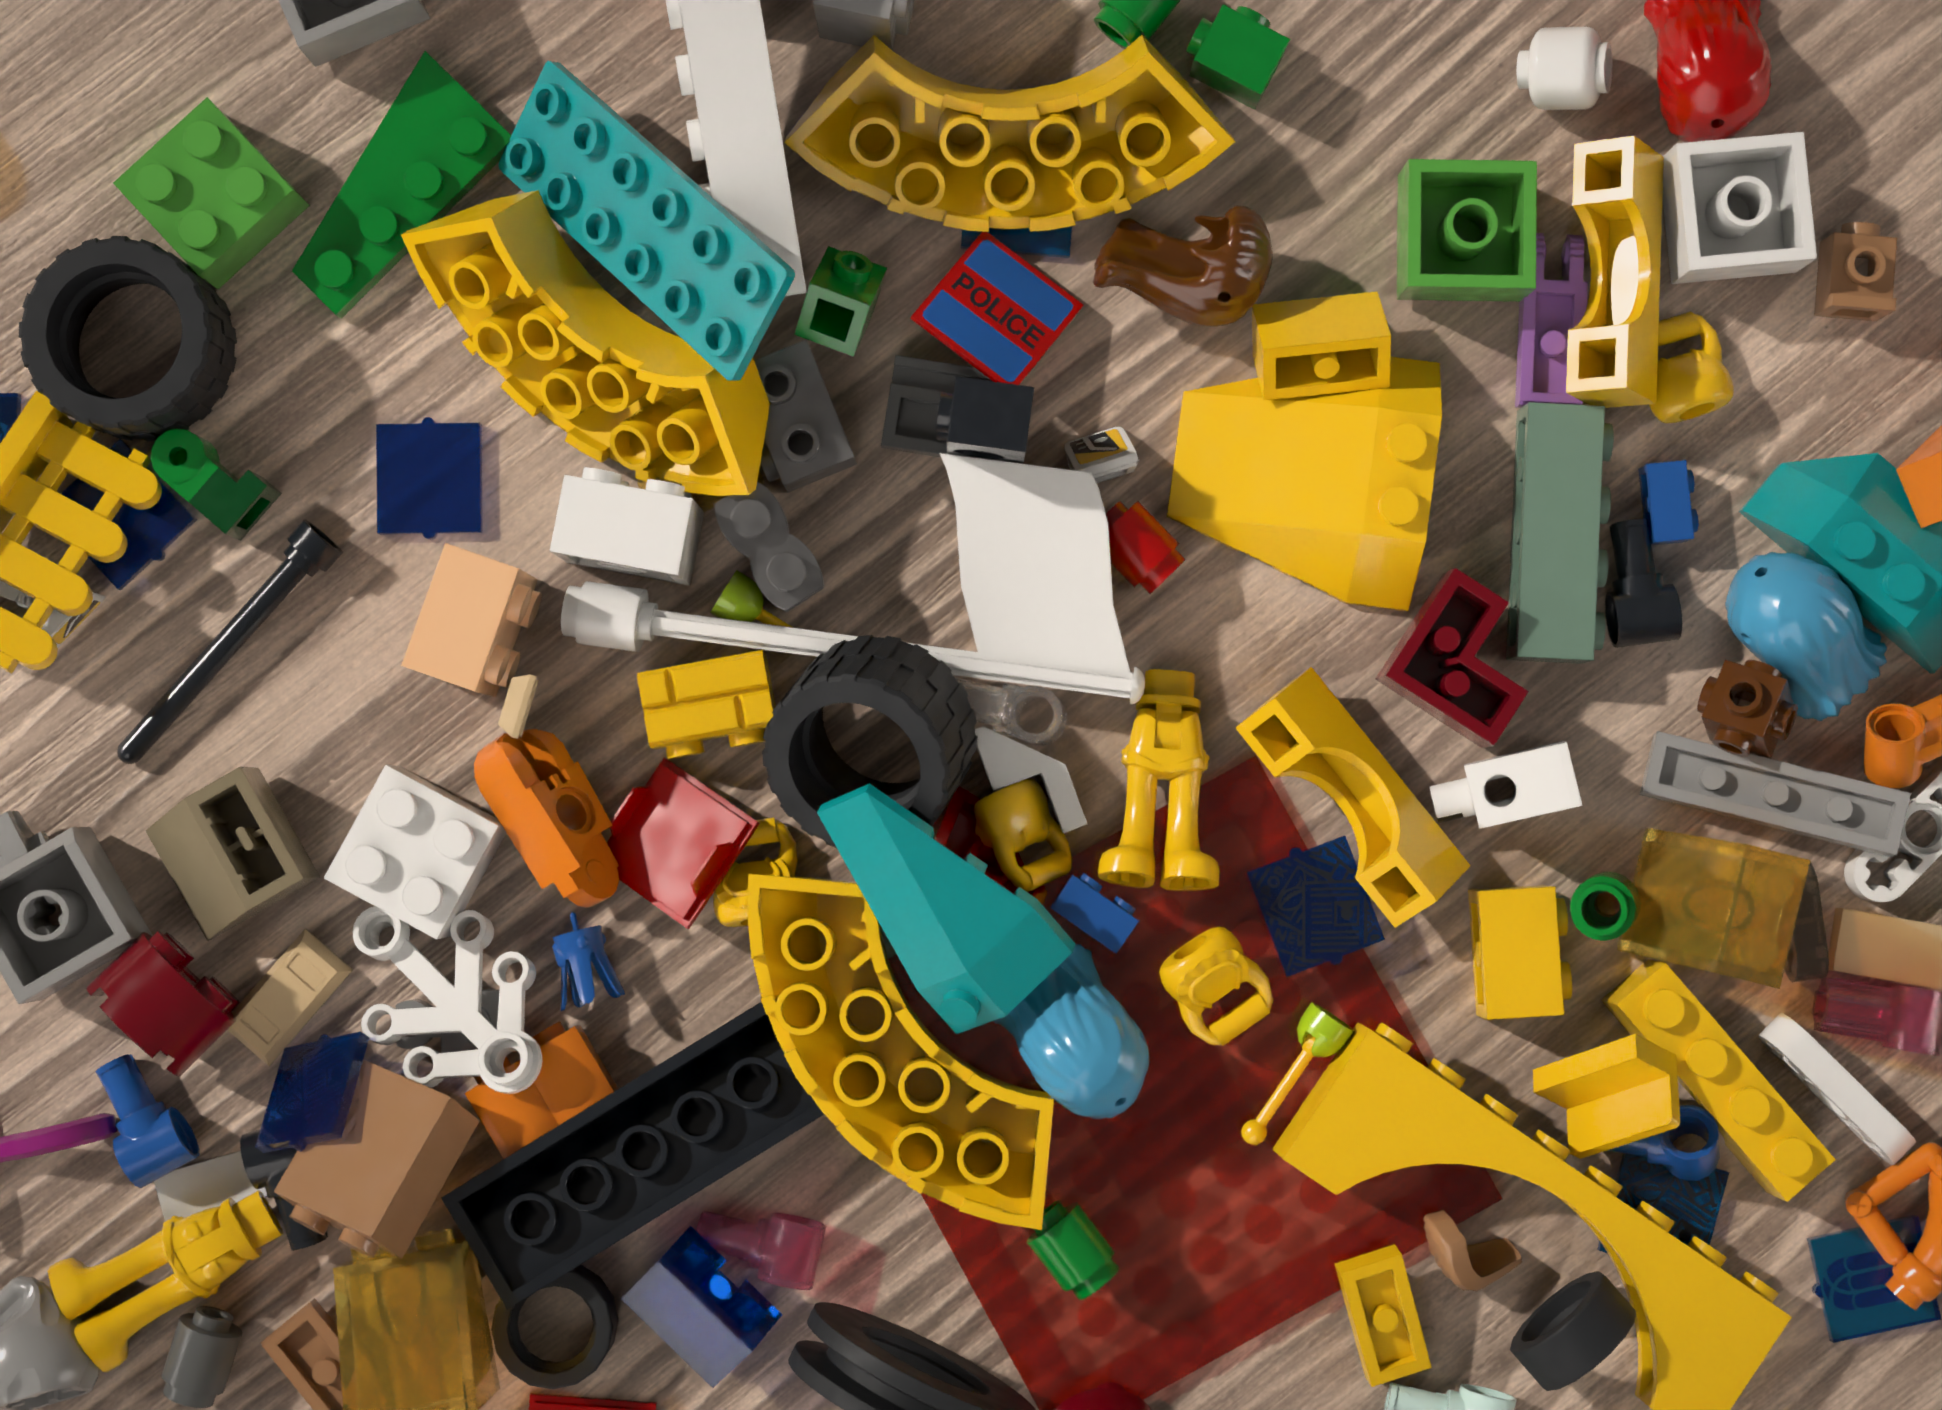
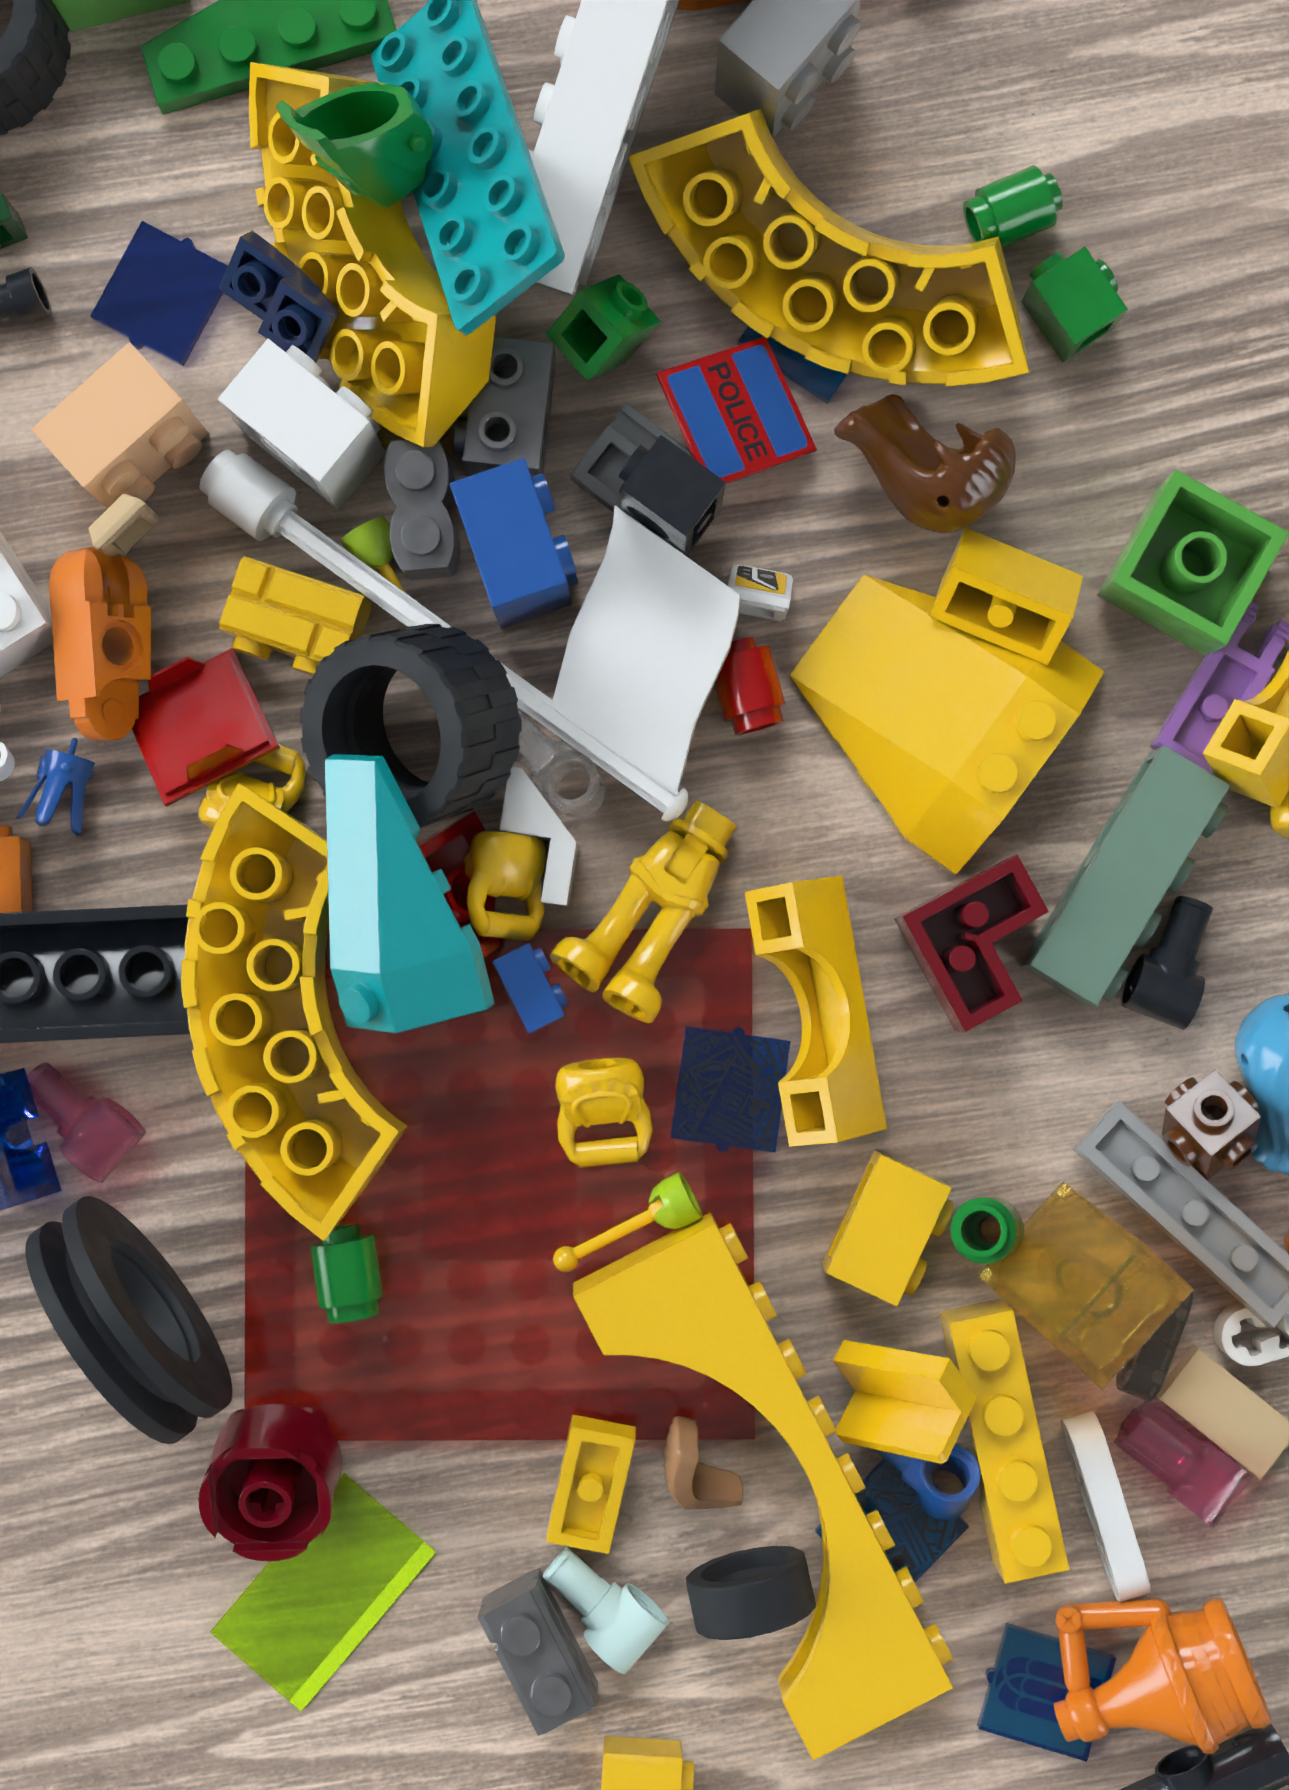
camera: 35 degrees right, 0 degrees up
(540, 424) = (280, 295): none -> dark blue slope
(555, 254) = (366, 139): none -> green helmet
(869, 532) = (512, 544): none -> blue brick
(1080, 1040) = (454, 1091): dark azure piece -> none
(1541, 780) = (991, 1083): white torso -> none
(1667, 501) = (1239, 903): blue piece -> none

